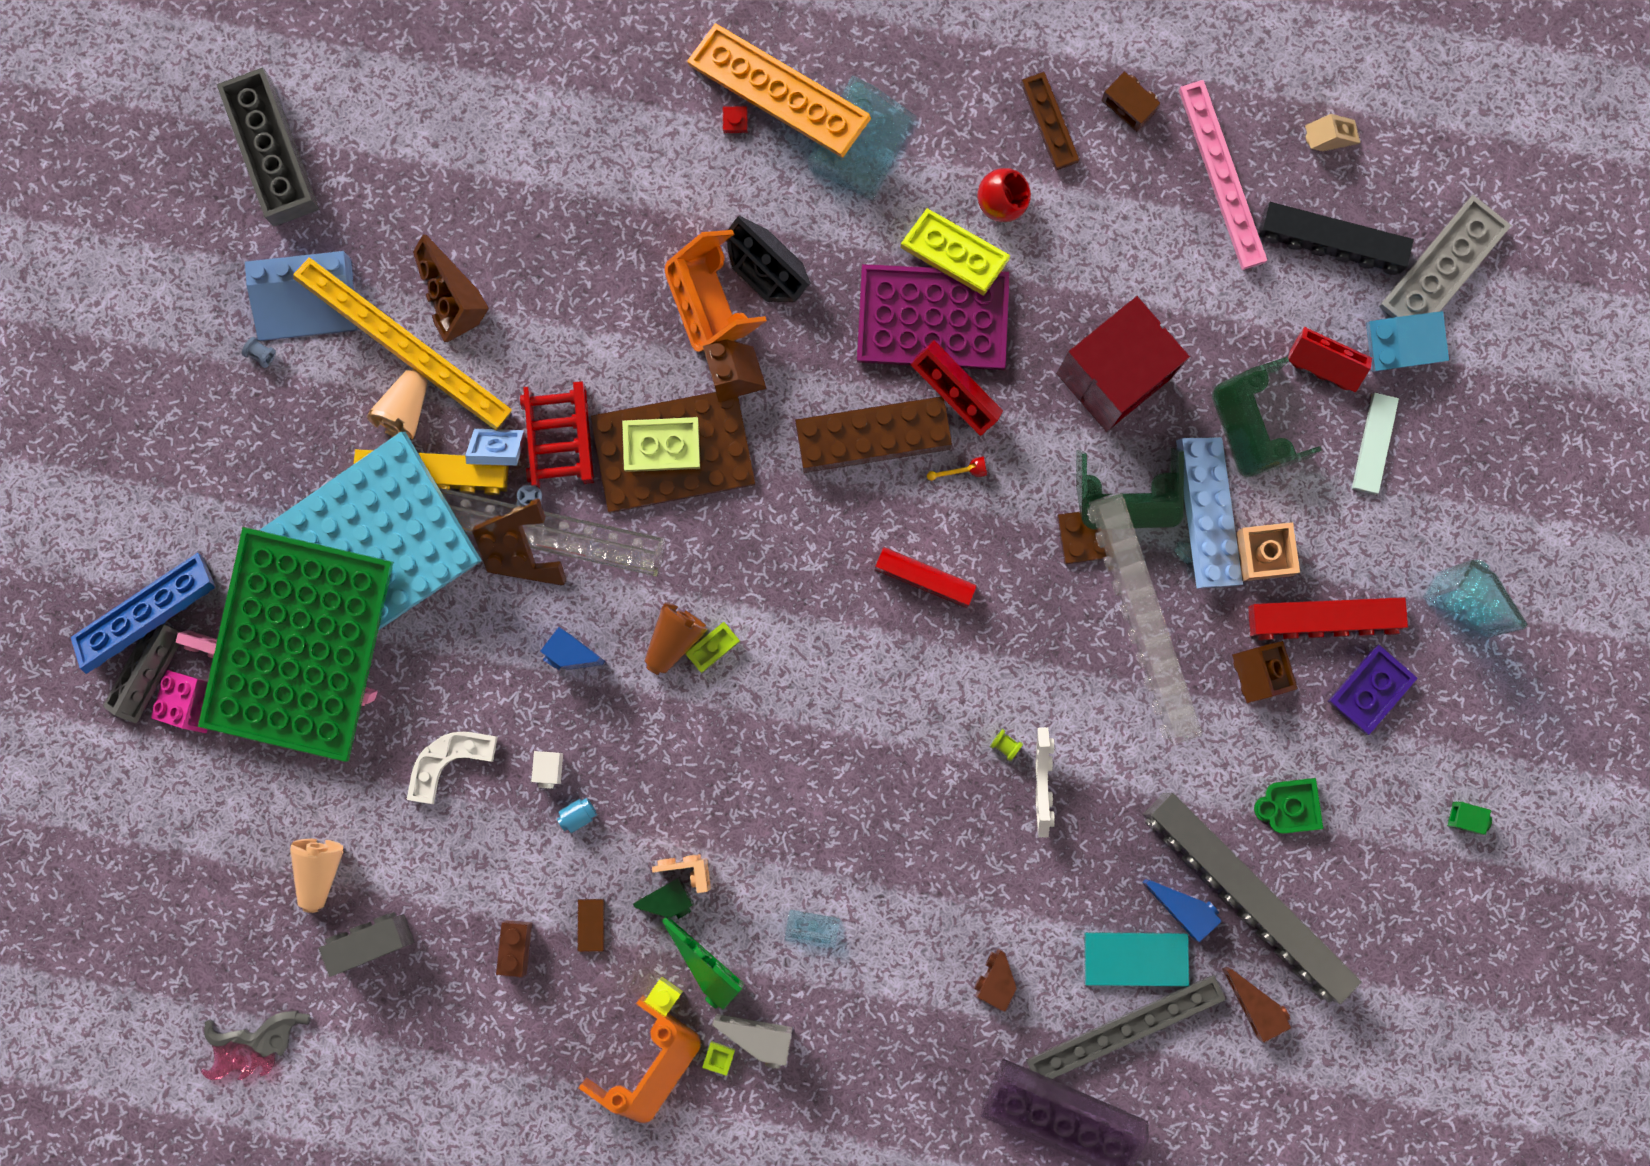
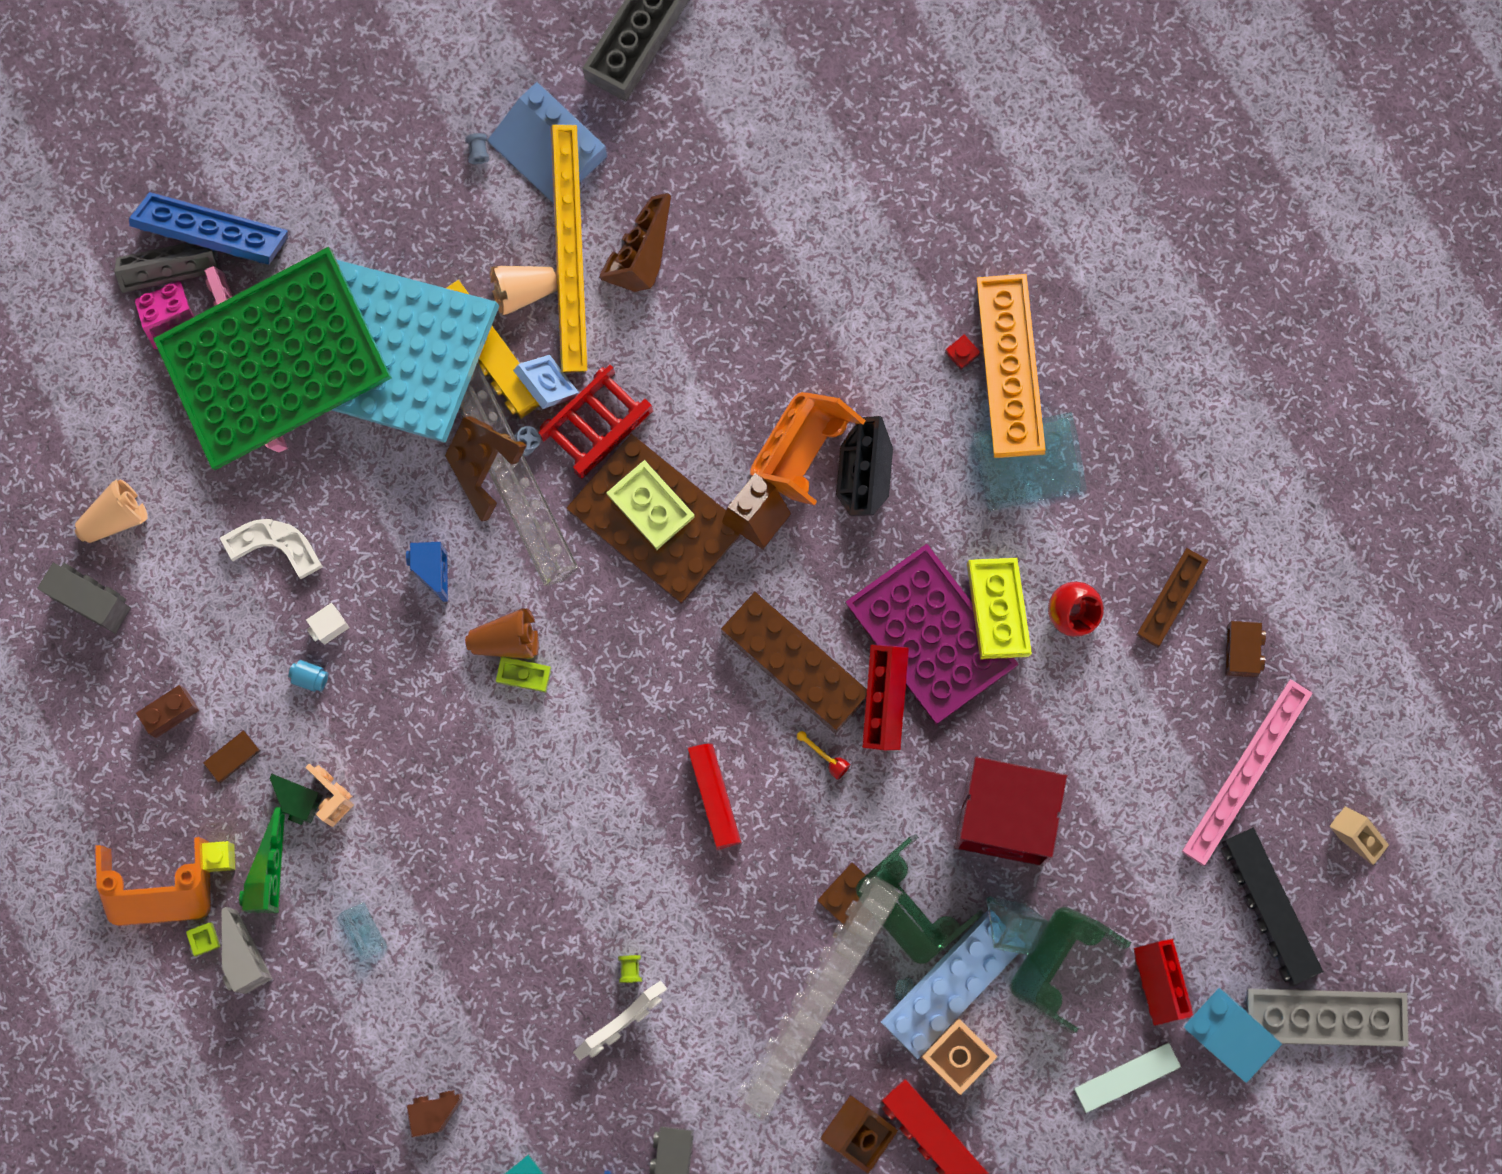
camera: 55 degrees right, 5 degrees down
(1204, 431) = (1014, 925): none -> clear light blue slope

